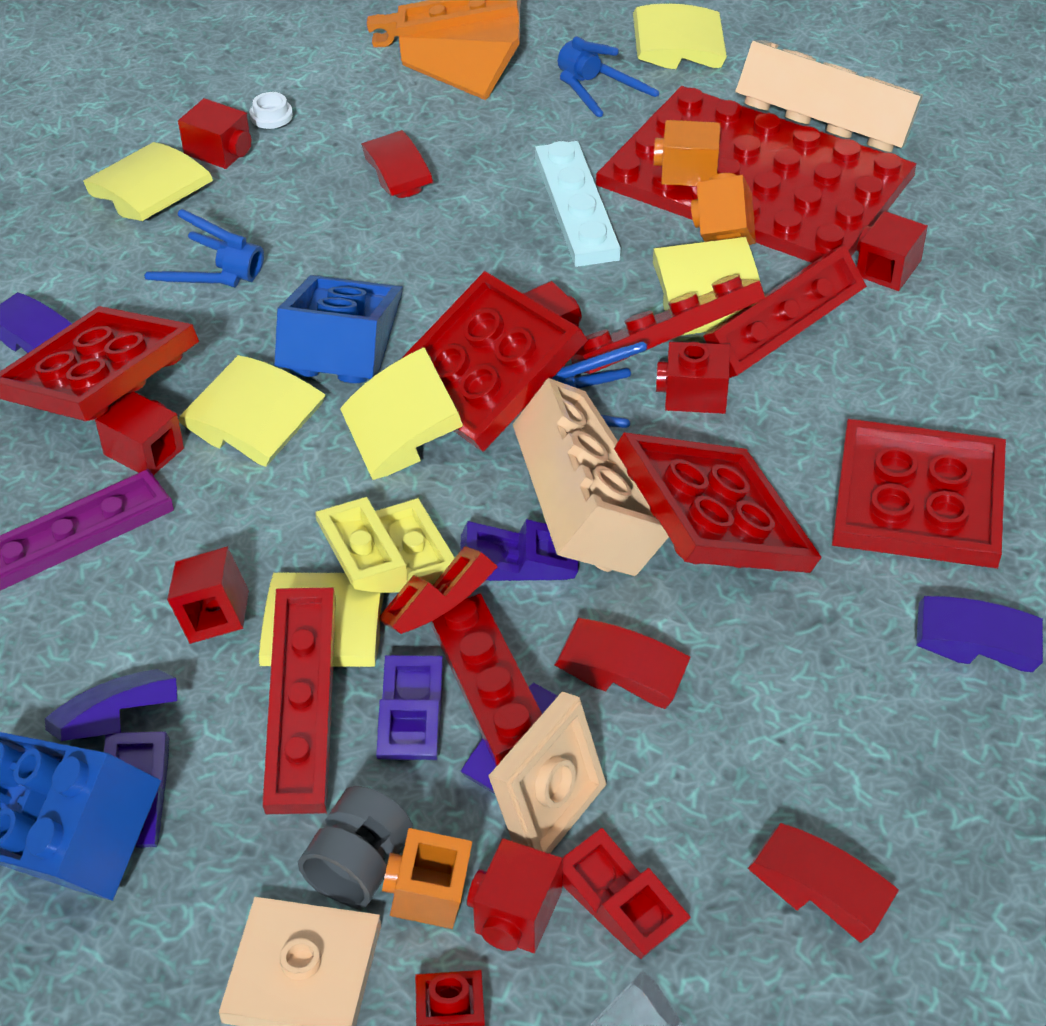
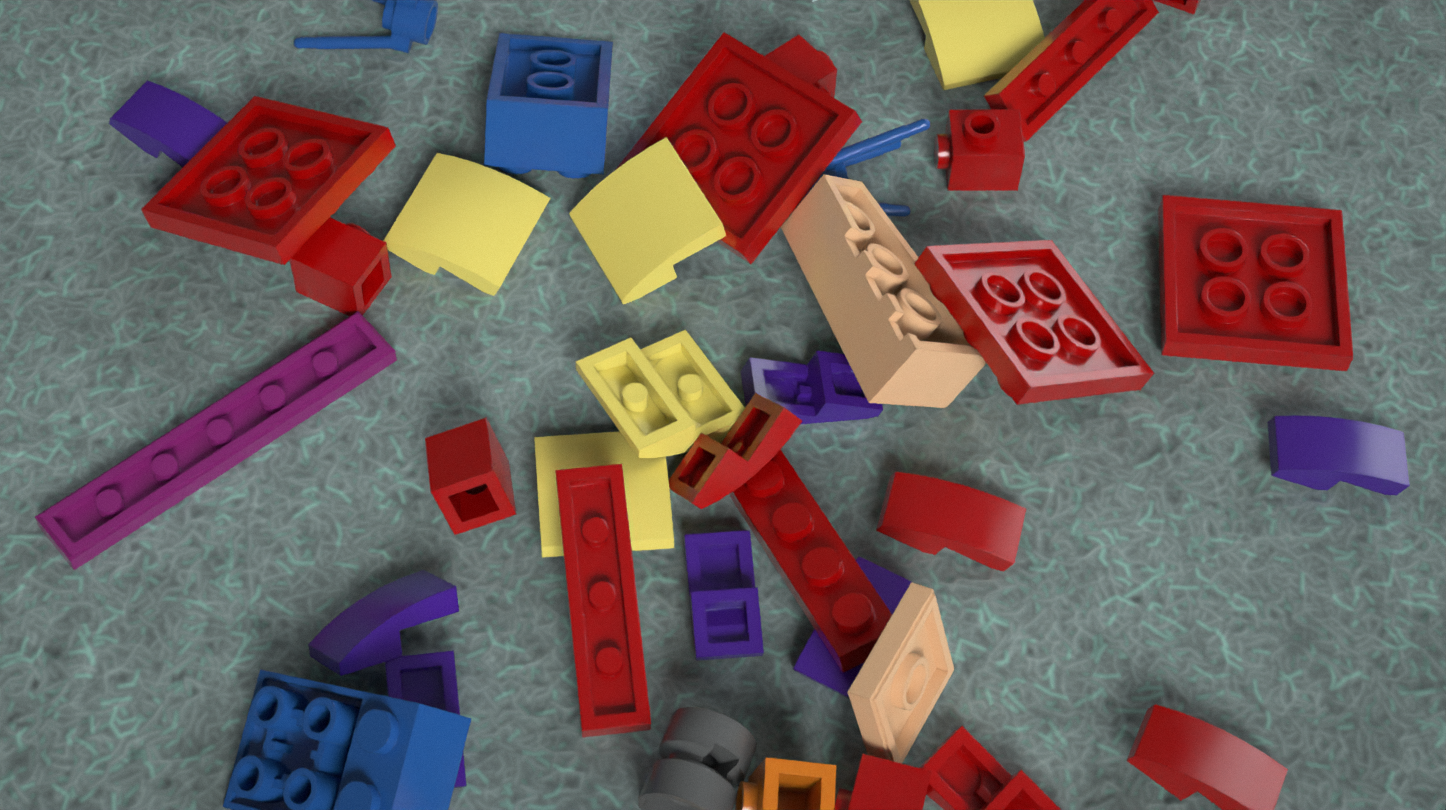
camera: 10 degrees left, 10 degrees up
(684, 315) = (958, 72): red plate -> none

